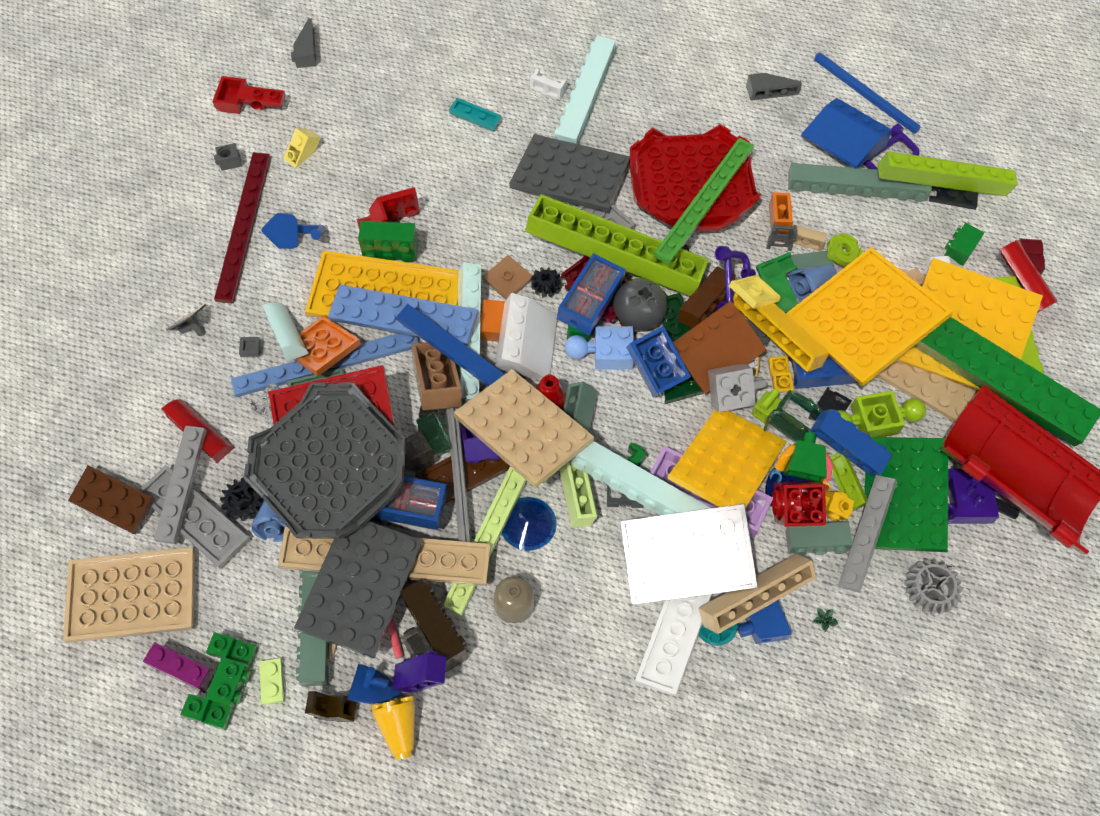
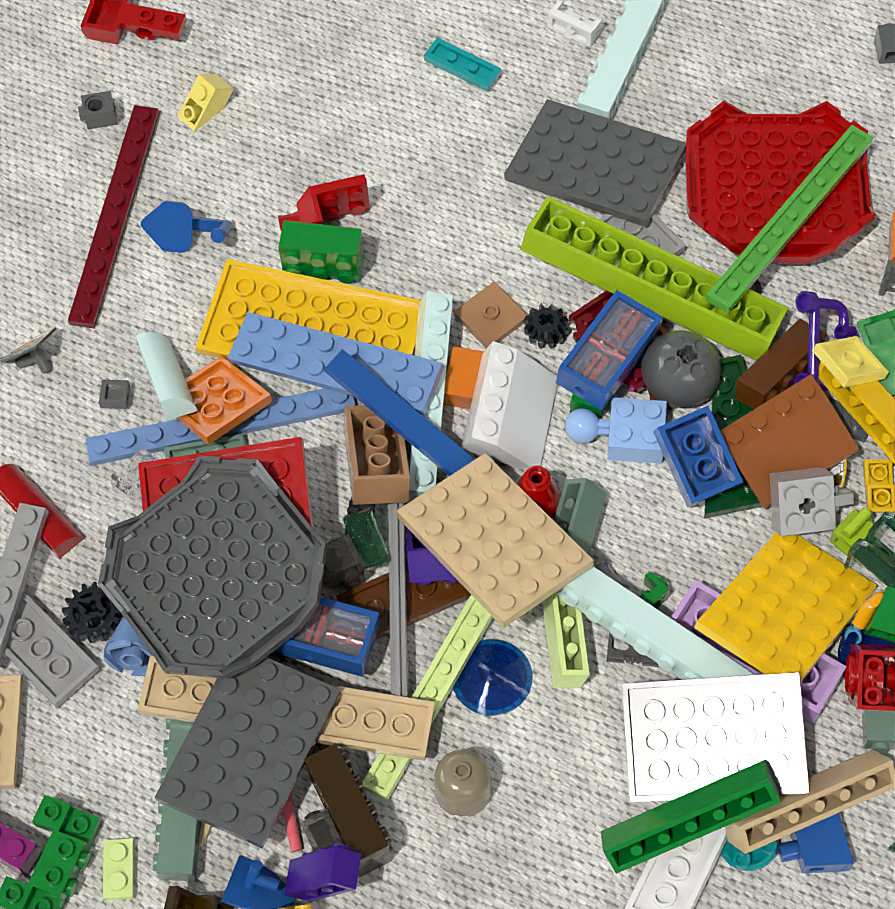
camera: 10 degrees right, 0 degrees up
(676, 611) = (690, 817): none -> green brick

